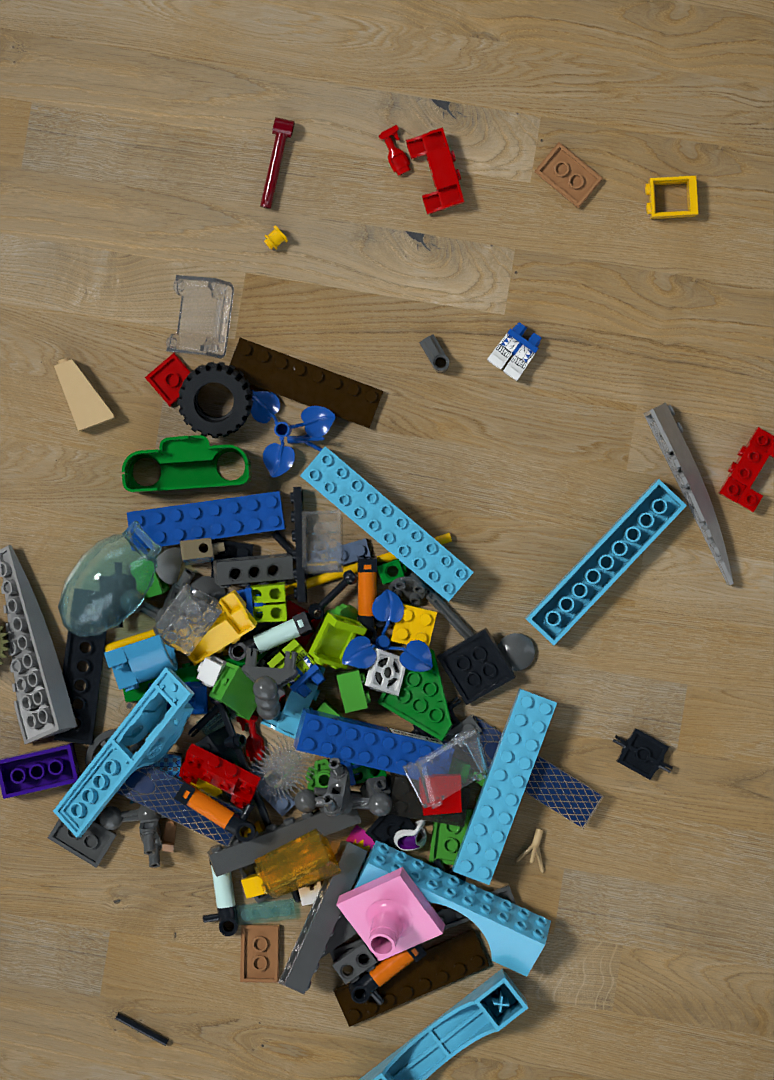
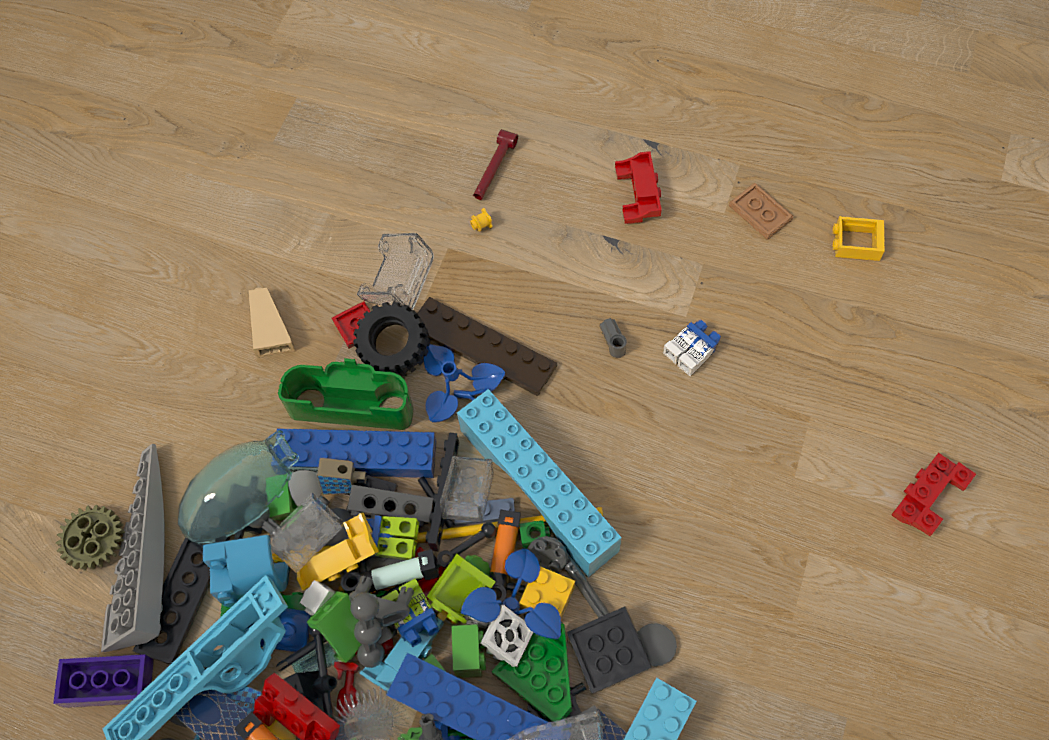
camera: 15 degrees right, 25 degrees down
(396, 156) = (604, 176): red piece -> none
(605, 561) = (763, 562): medium azure brick -> none
(689, 480) = (863, 497): light grey wedge -> none

